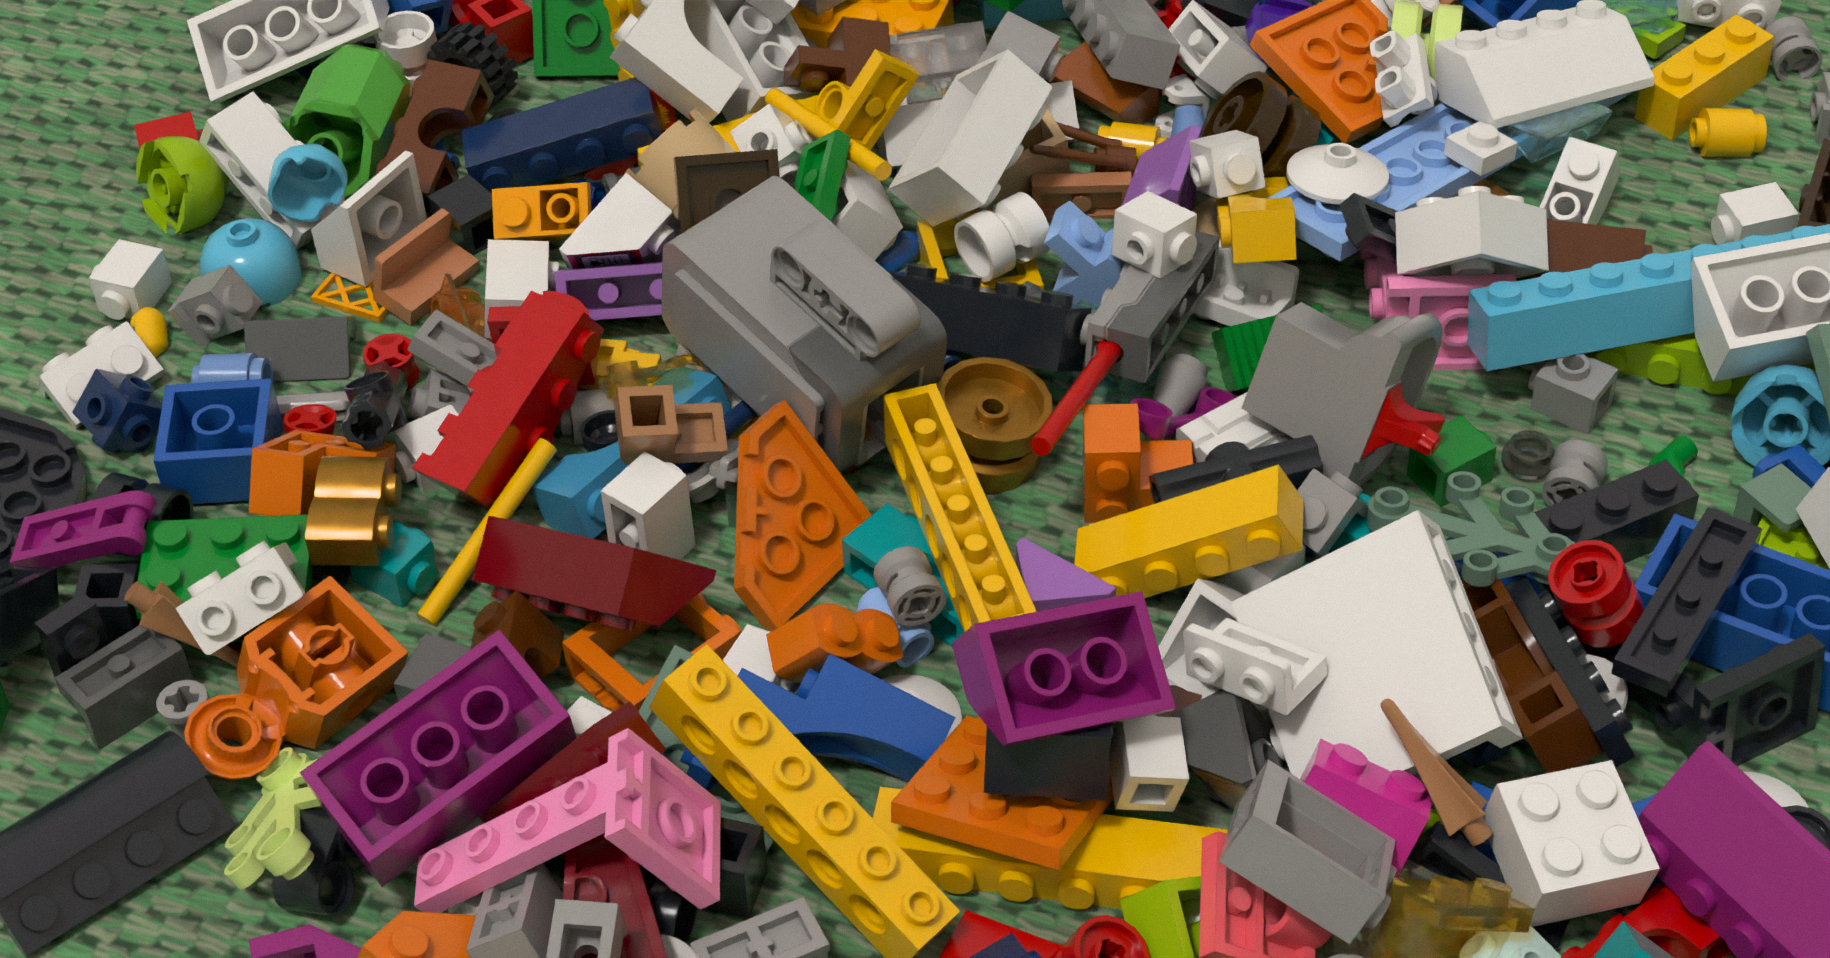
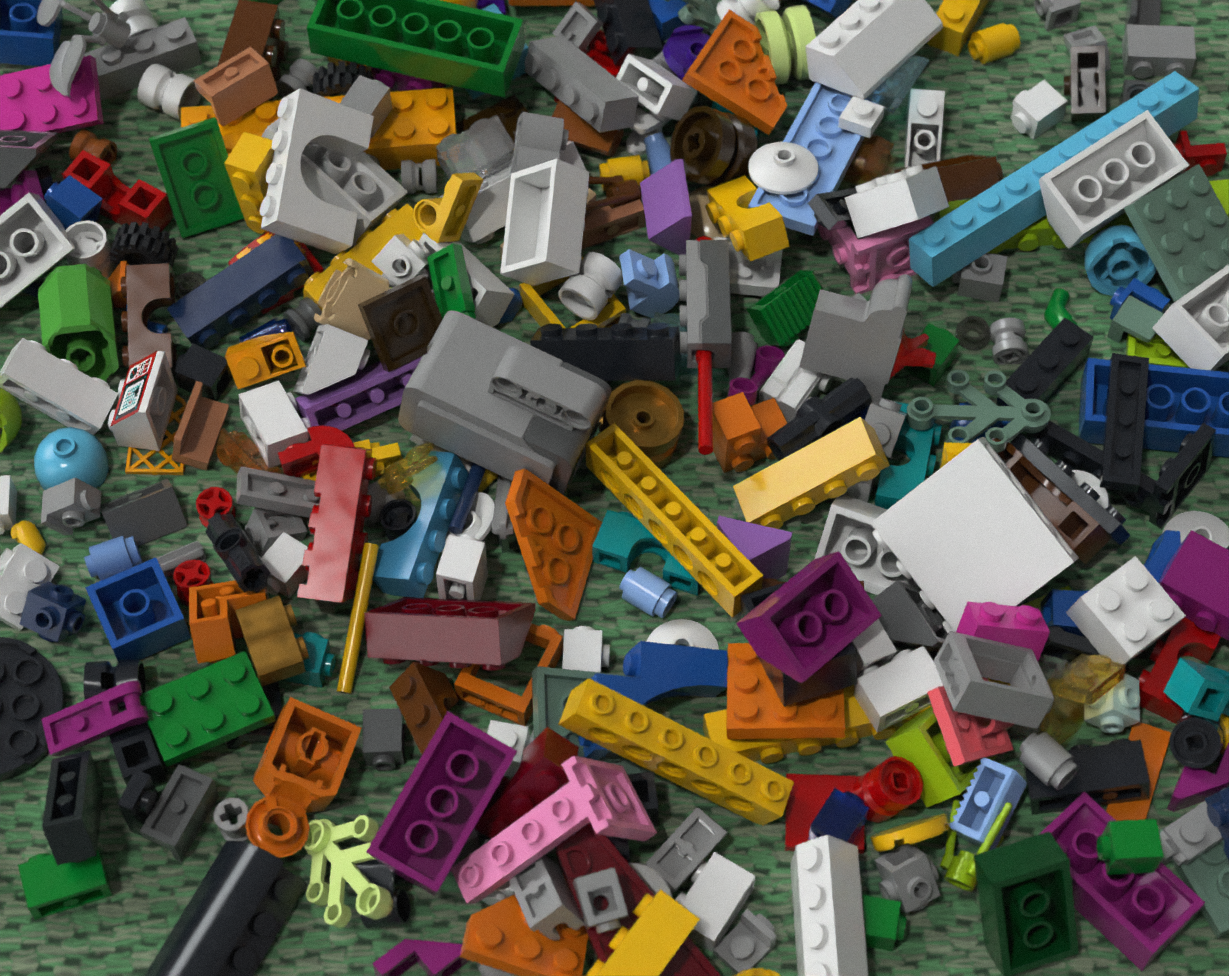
camera: 25 degrees left, 15 degrees up
(160, 615) = (196, 761): medium nougat piece -> none
(242, 600) = (243, 734): white bracket -> none
(306, 182) = (93, 393): medium azure hair -> none
(669, 431) = (454, 510): medium nougat brick -> none
(819, 127) = (433, 239): yellow bar -> none
(846, 55) = (420, 173): reddish brown brick -> none
(862, 639) = (629, 626): orange brick -> none
(911, 588) = (658, 570): light grey wheel -> none
(1154, 234) = (697, 260): white brick -> none
(1161, 831) = (897, 687): none -> white brick
(1226, 164) = (714, 186): white brick -> none
(1253, 664) = (907, 564): white bracket -> none
(1402, 76) = (792, 77): white hips -> none
(1452, 796) = (1052, 608): medium nougat piece -> none
(1595, 593) = (1072, 436): red wheel -> none

